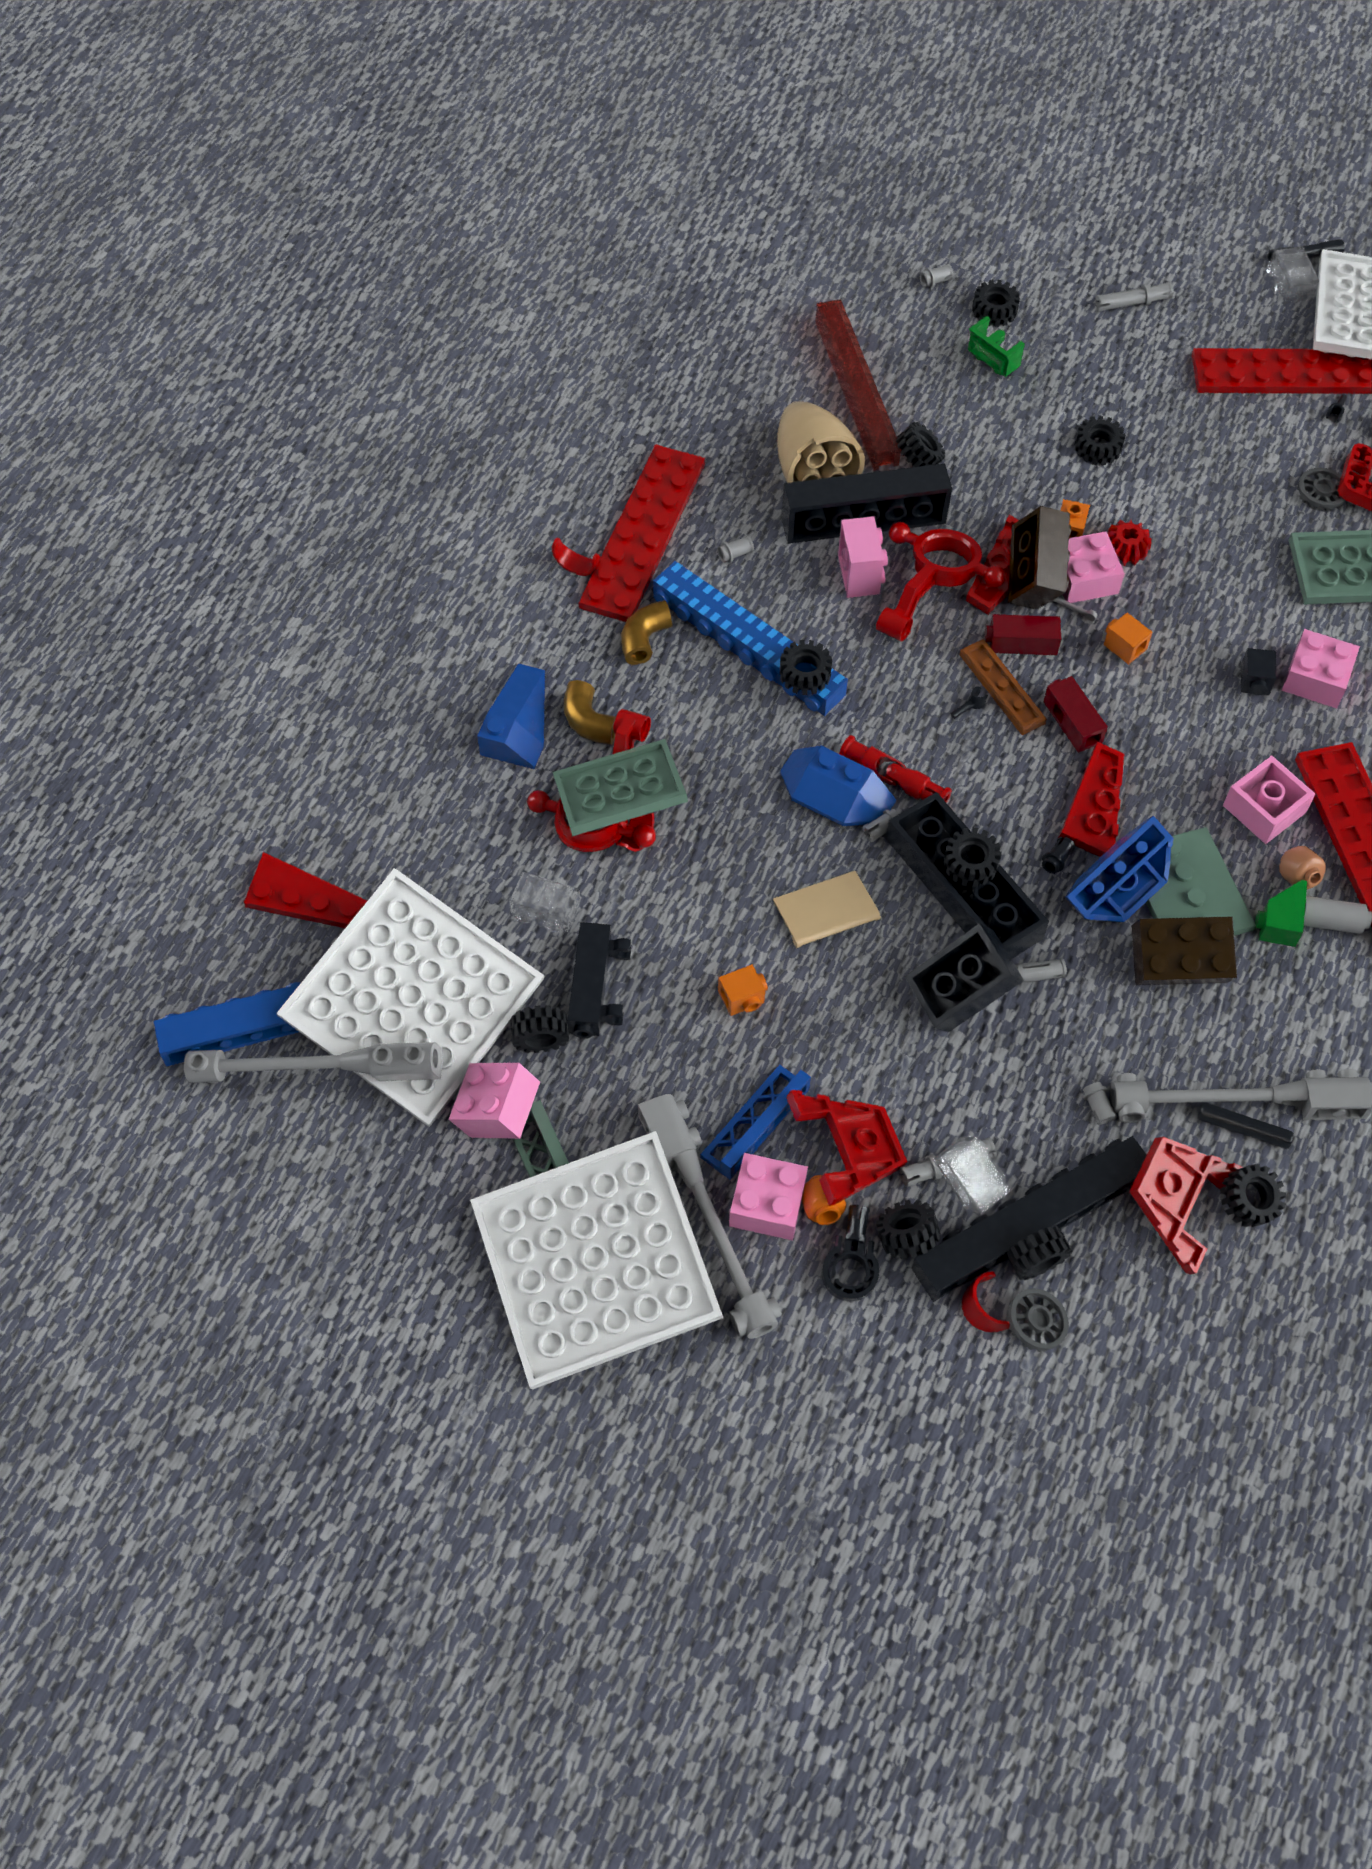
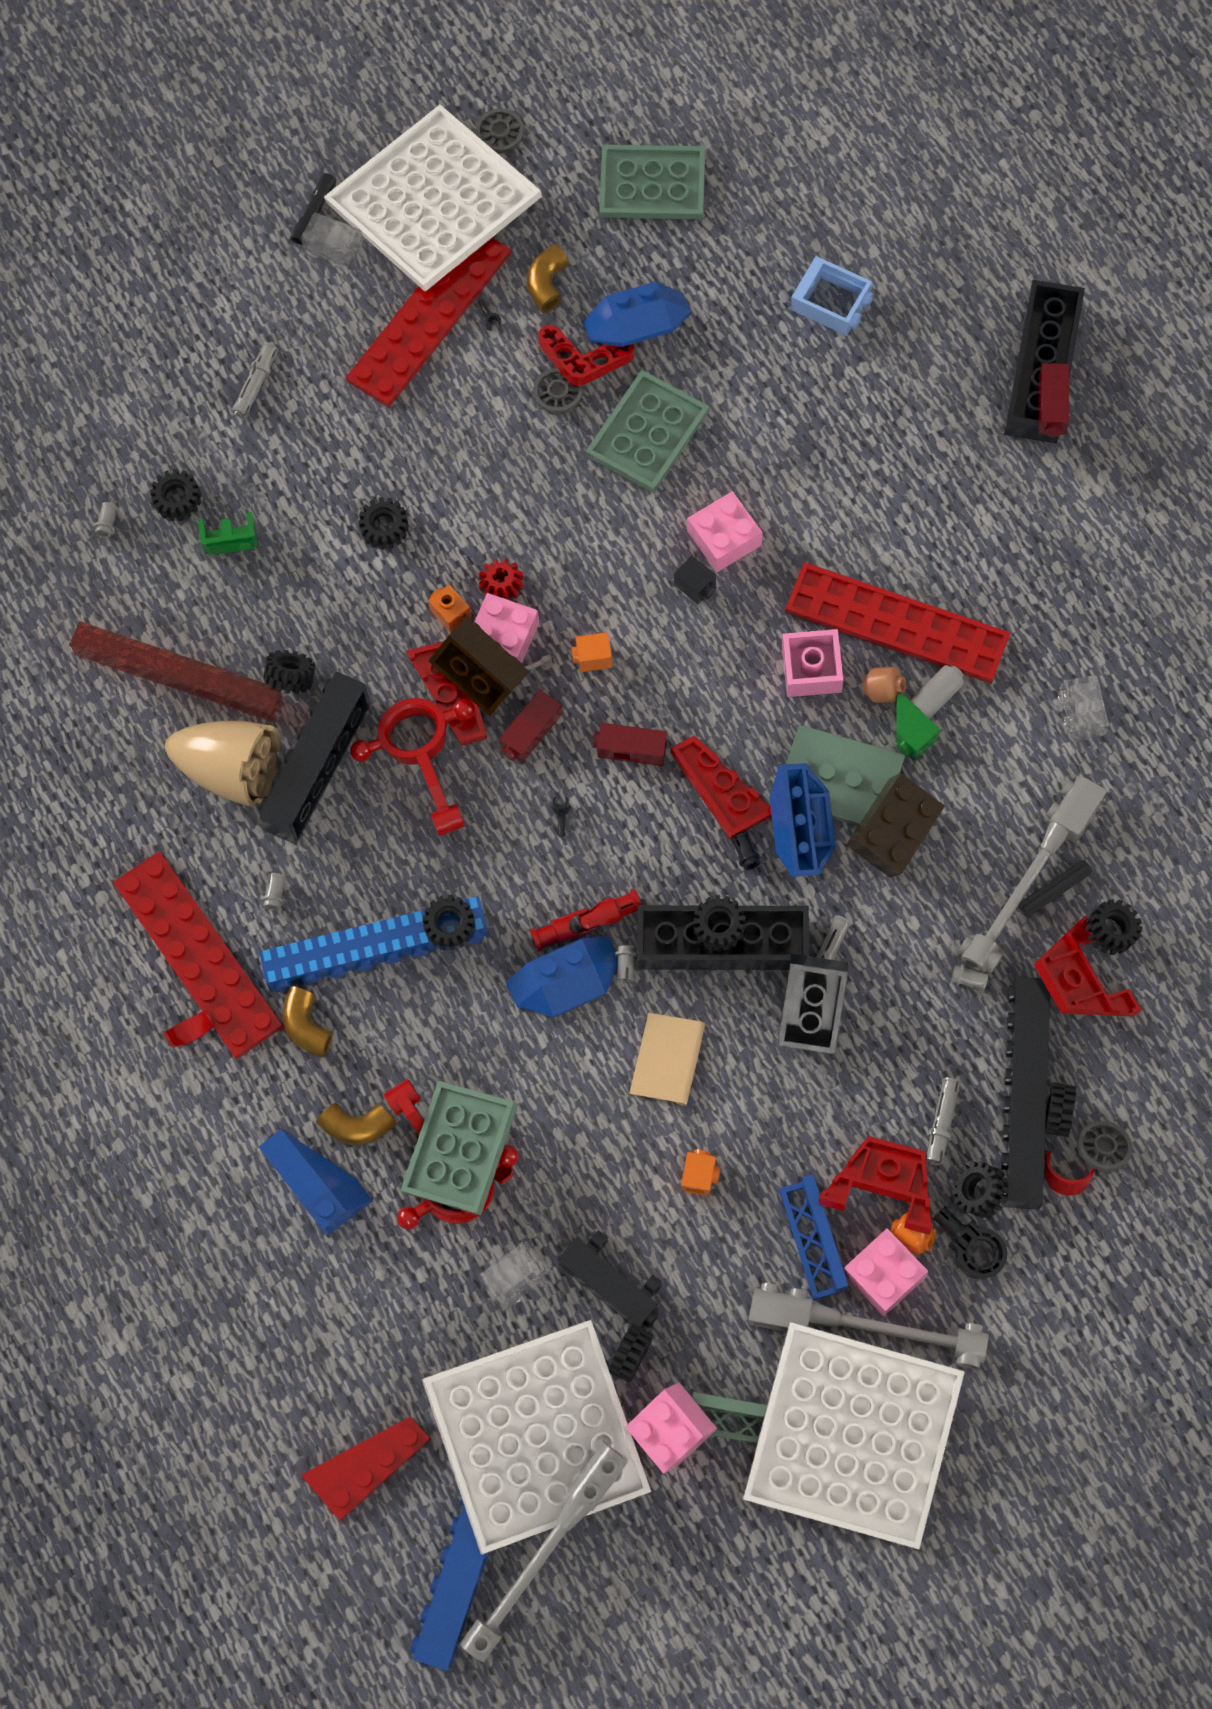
camera: 50 degrees left, 10 degrees up
(861, 557) = (367, 799): bright pink brick -> none
(972, 1174) = (969, 1112): clear brick -> none
(1003, 687) = (562, 778): dark orange tile -> none

